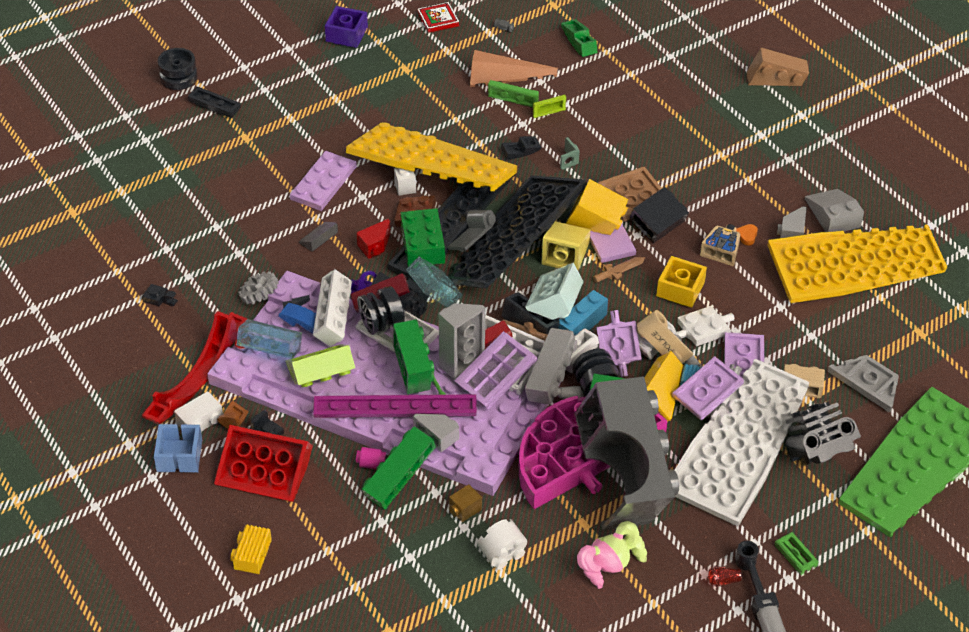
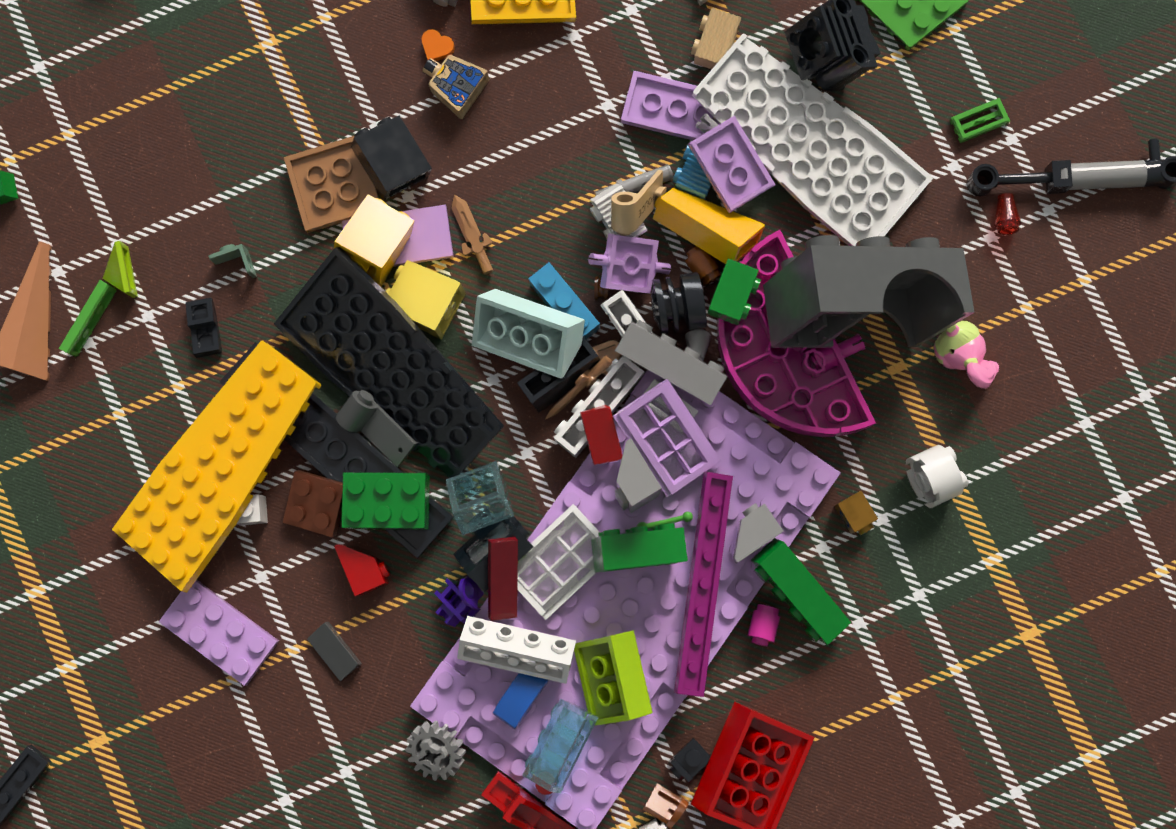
camera: 70 degrees left, 35 degrees up
(251, 549) = (891, 798): yellow brick -> none
(298, 300) = (485, 698): black bar -> none
(380, 309) = (549, 582): black wheel -> none
(681, 281) = (523, 155): yellow brick -> none
(704, 325) = (597, 144): white plate -> none

